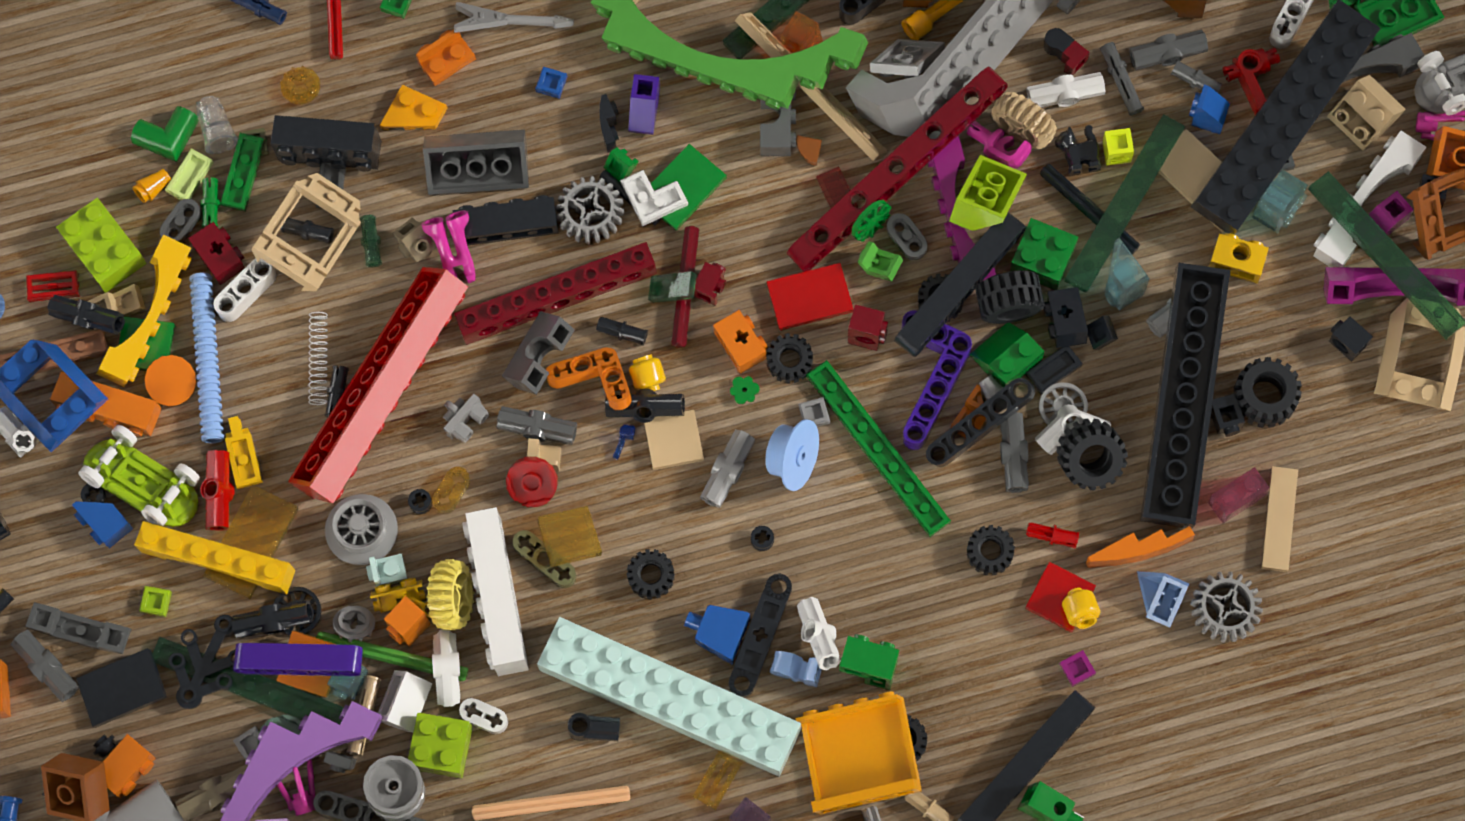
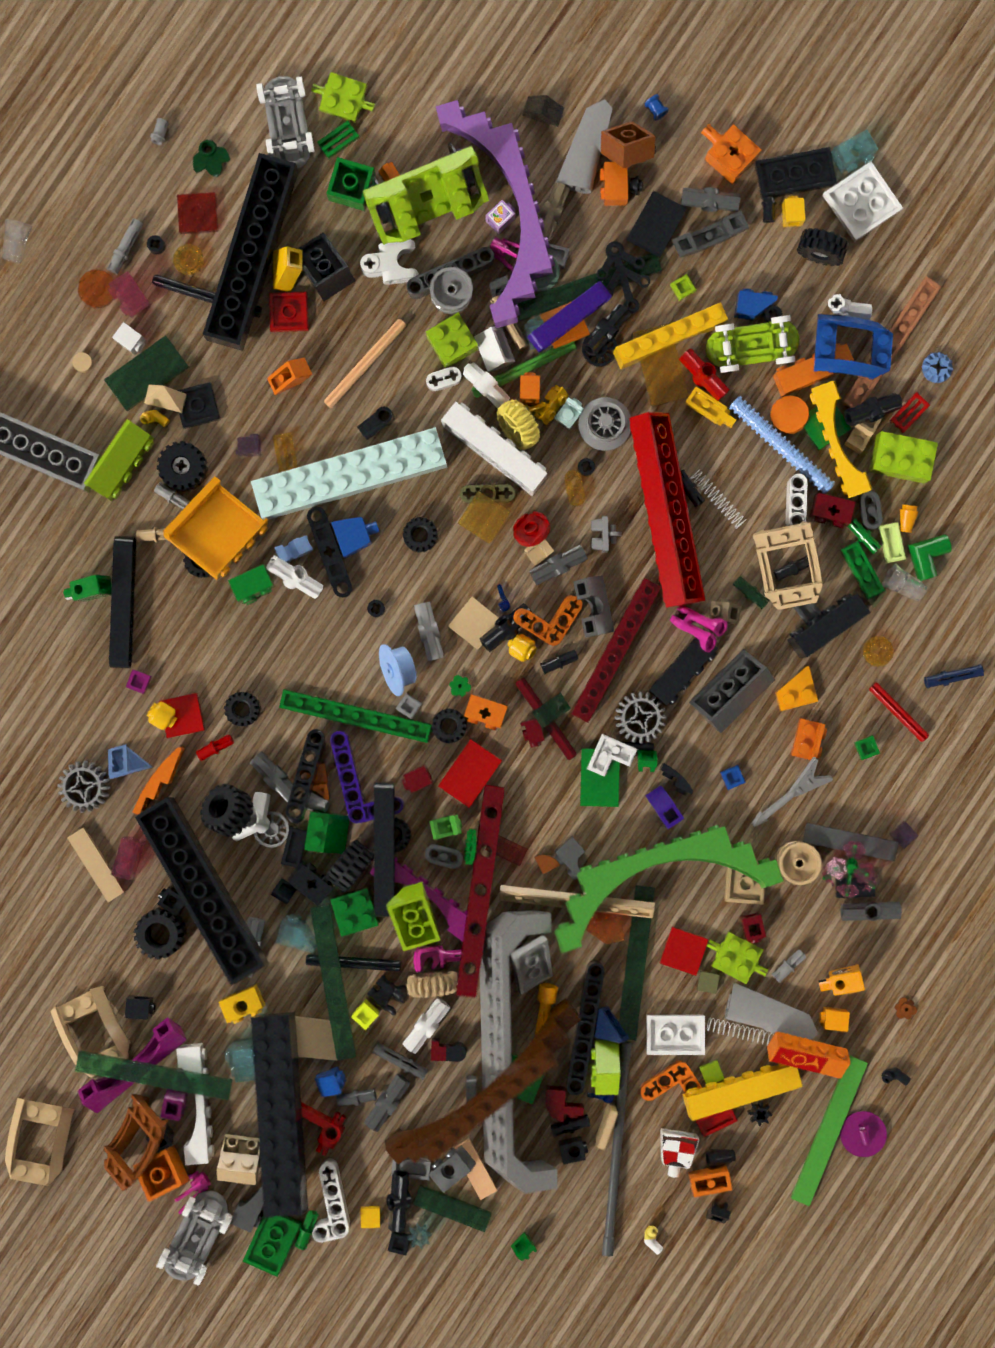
camera: 135 degrees right, 15 degrees up
(345, 618) = (568, 367): light grey gear -> none

